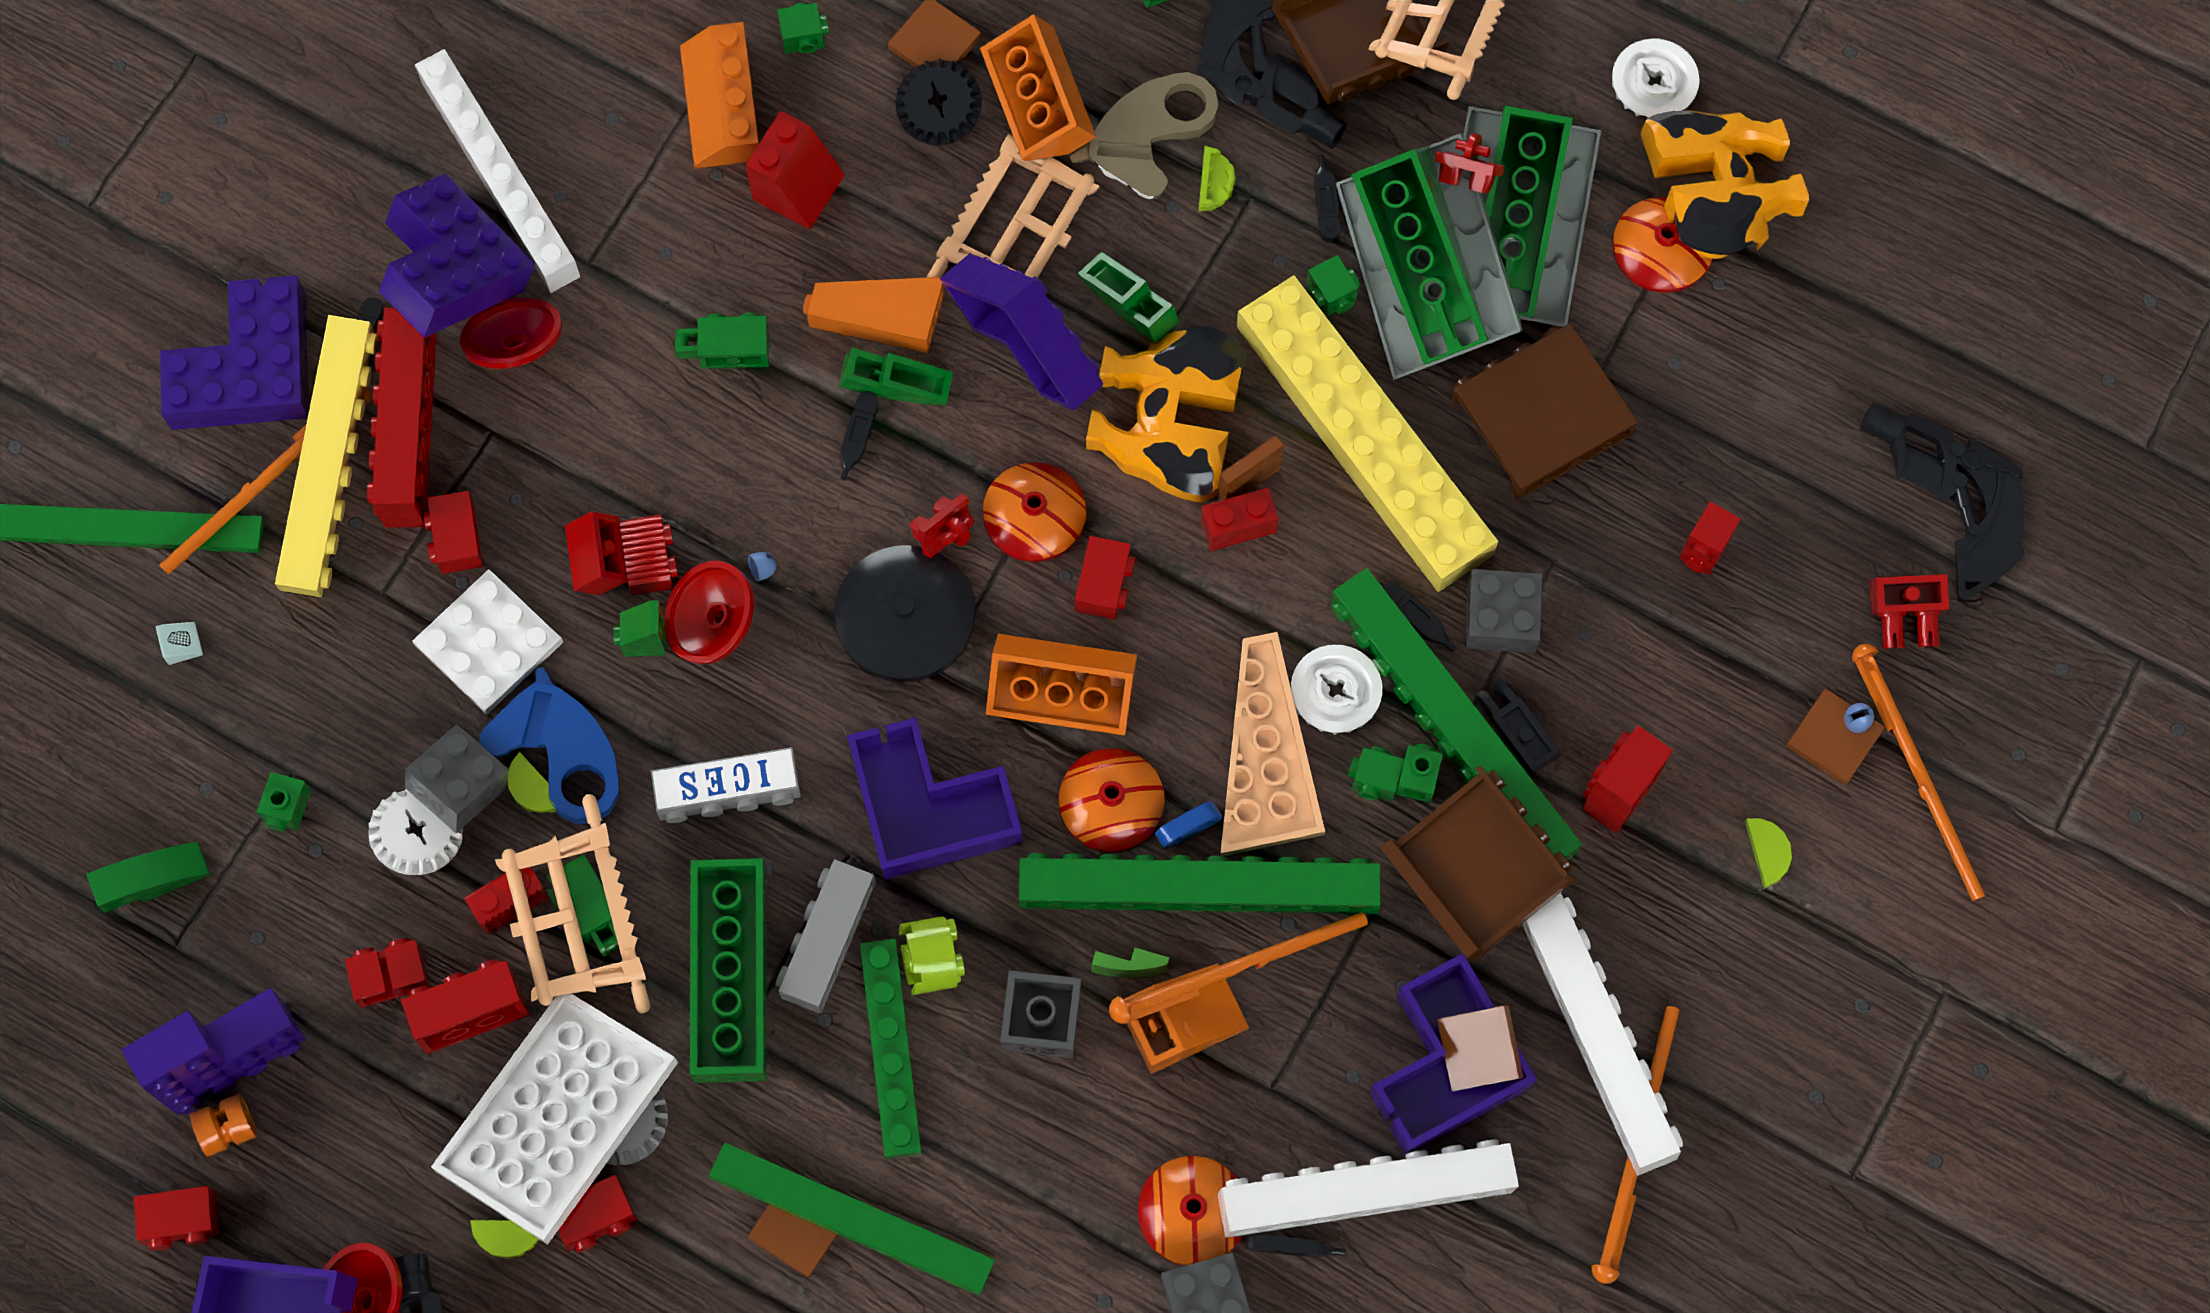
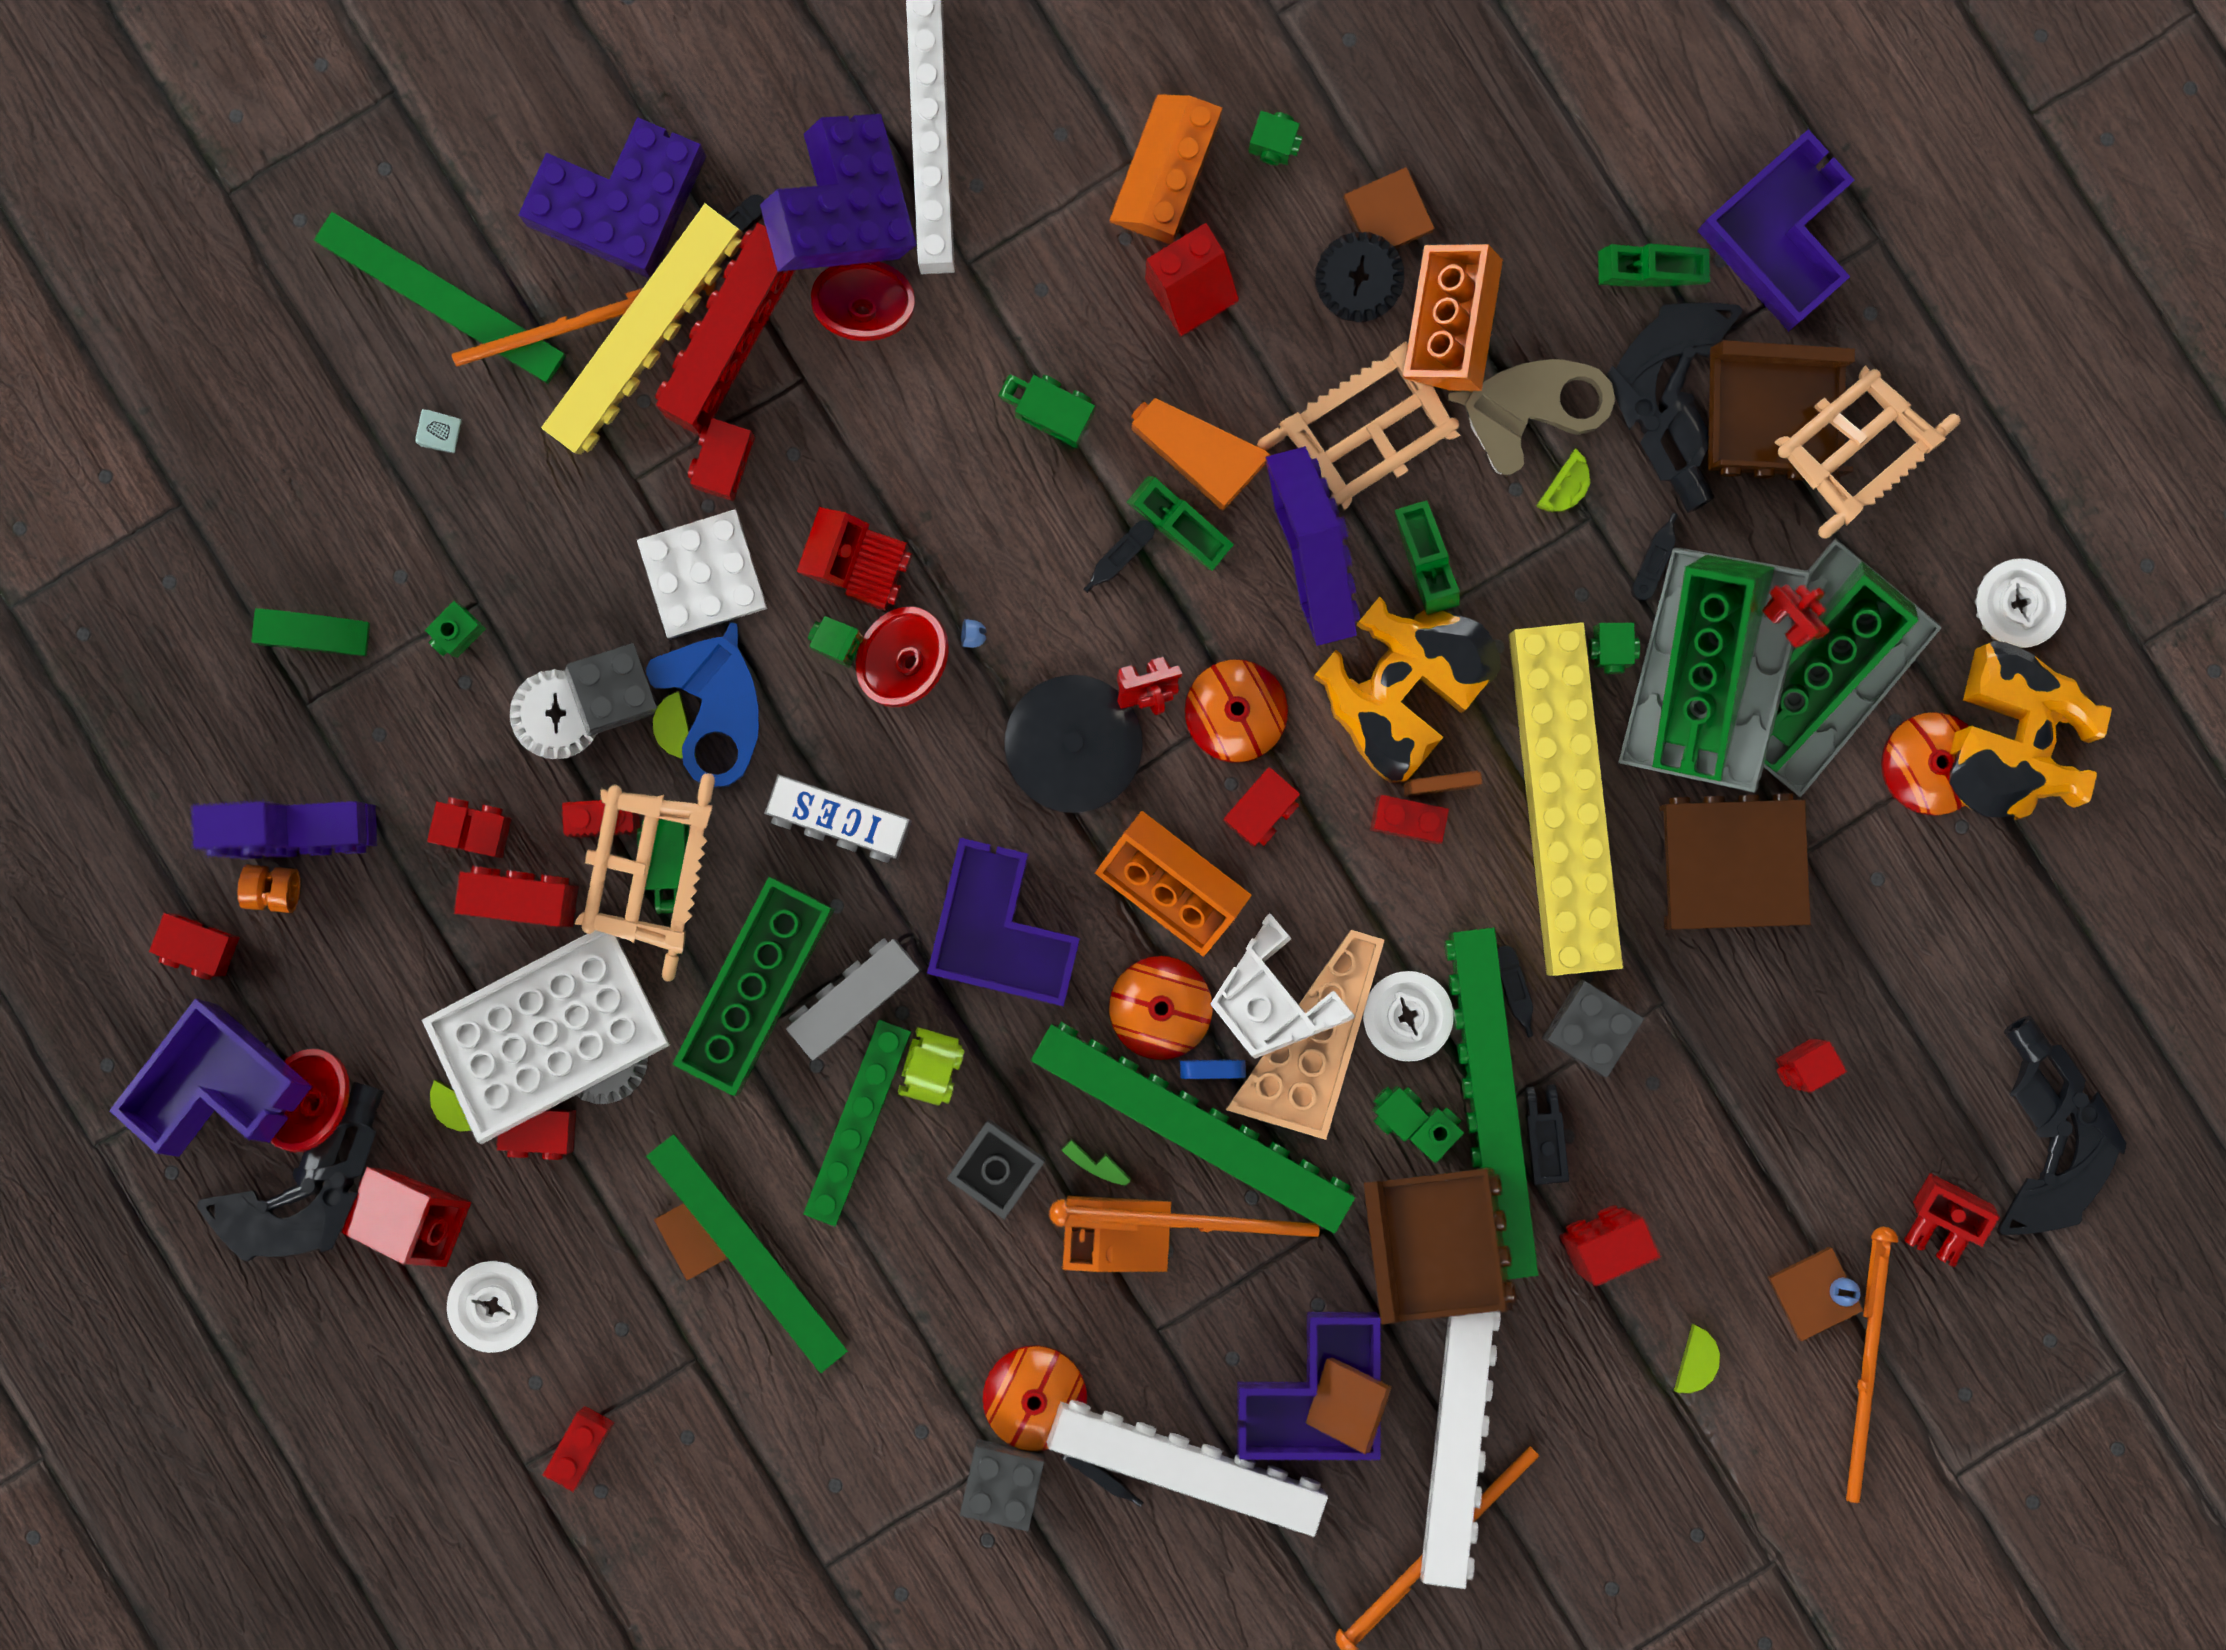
camera: 25 degrees right, 15 degrees up
(1203, 747) = (1262, 1009): none -> white wing

